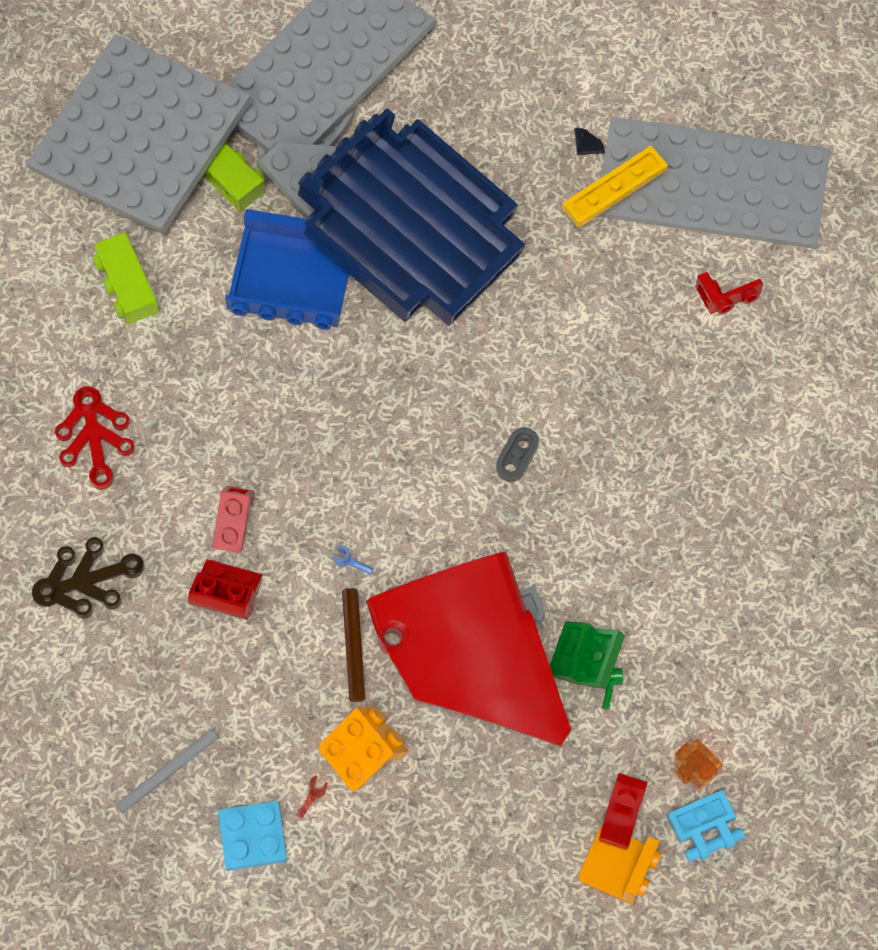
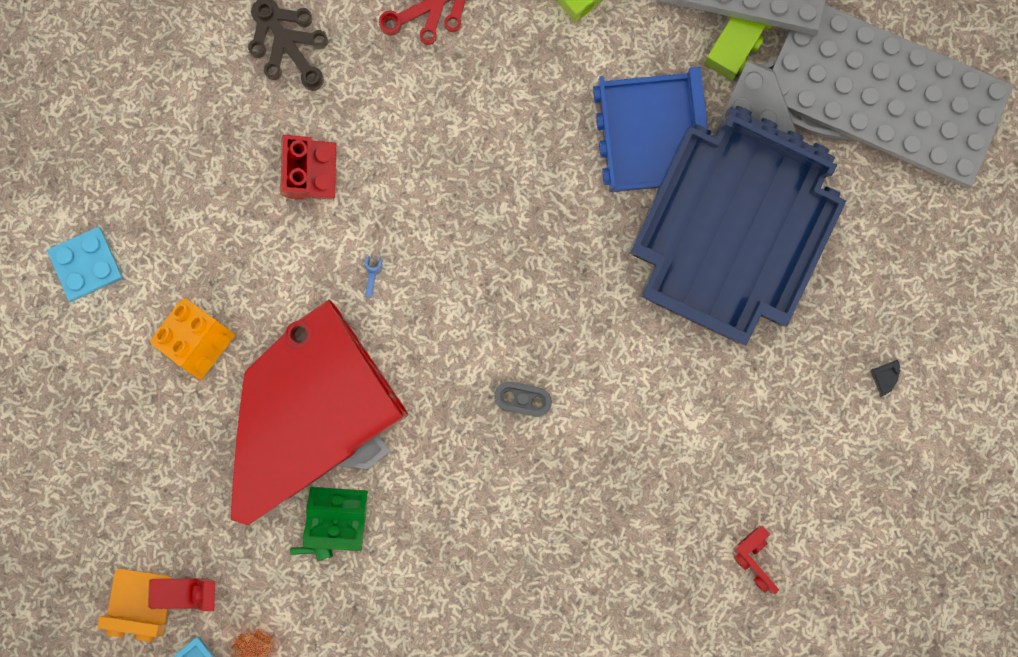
camera: 75 degrees right, 15 degrees up
(167, 771) = (126, 171): light grey bar -> none
(232, 518) = (384, 151): bracket -> none
(313, 794) = (132, 305): clear red hand -> none
(353, 645) = (289, 300): reddish brown axle -> none
(614, 186) = (838, 417): yellow plate -> none
(722, 183) = (881, 516): light grey plate -> none

